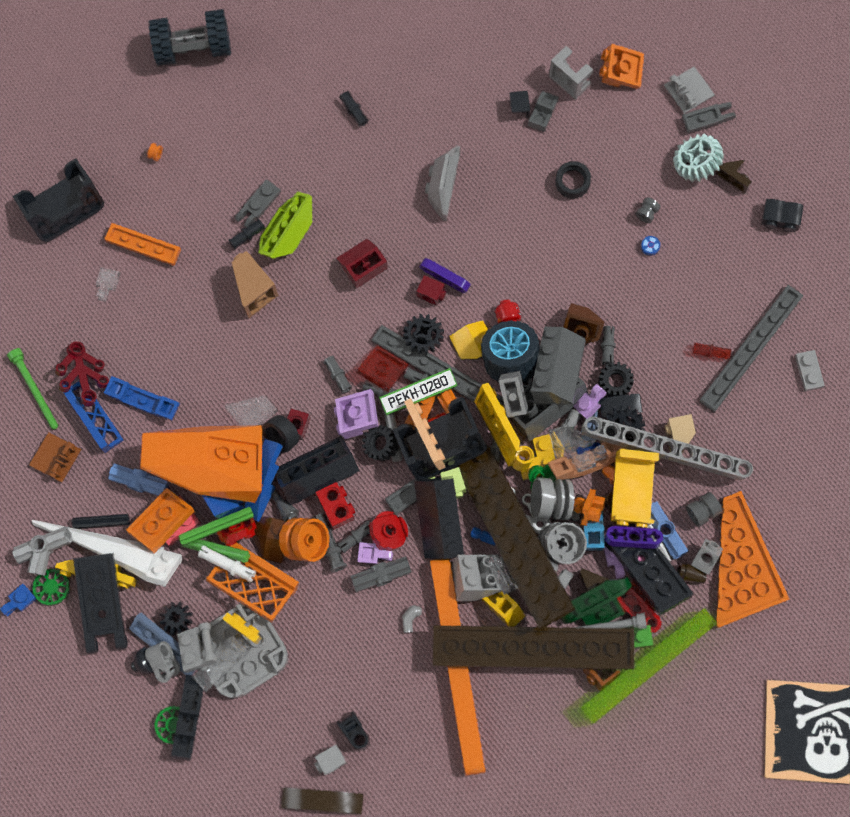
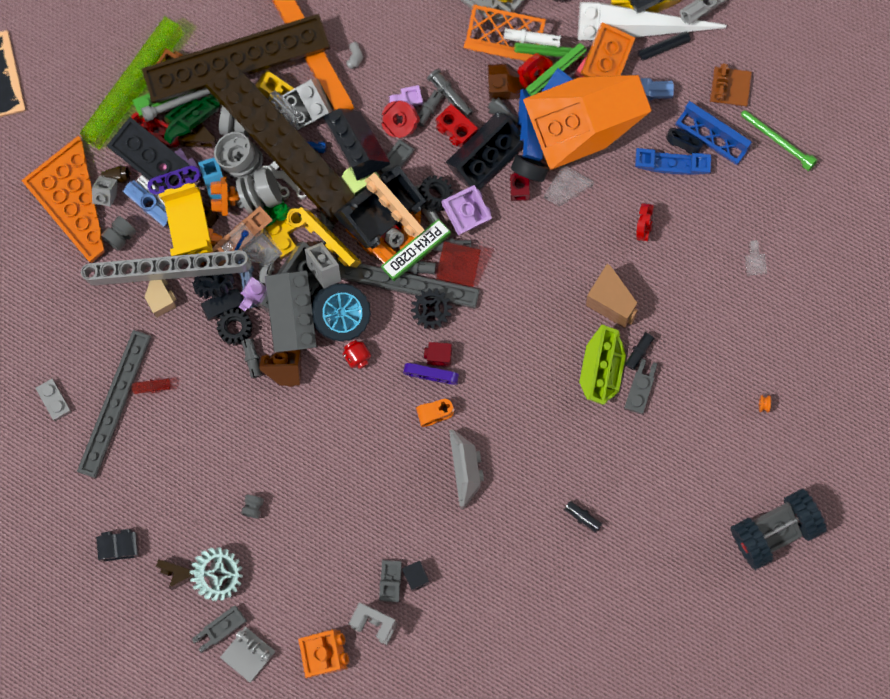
camera: 165 degrees right, 0 degrees up
(62, 204) = (836, 319): black windscreen -> none
(82, 372) = (739, 165): dark red plant -> none
(125, 418) = (684, 140): none -> black plate
(142, 244) = (736, 307): orange plate -> none
(194, 342) = (644, 223): none -> red plate
(304, 539) = (471, 81): orange wheel -> none
(337, 374) = (499, 246): dark grey pin -> none
(362, 262) = (515, 358): dark red slope -> none
(381, 574) = (394, 82): dark grey piece -> none
(435, 411) = (397, 240): none -> light grey bush
(455, 239) = (433, 412): none -> orange piece
(468, 340) = (384, 321): yellow slope -> none
(573, 166) = (332, 500): black tyre -> none
(650, 245) = (240, 473): blue tile -> none

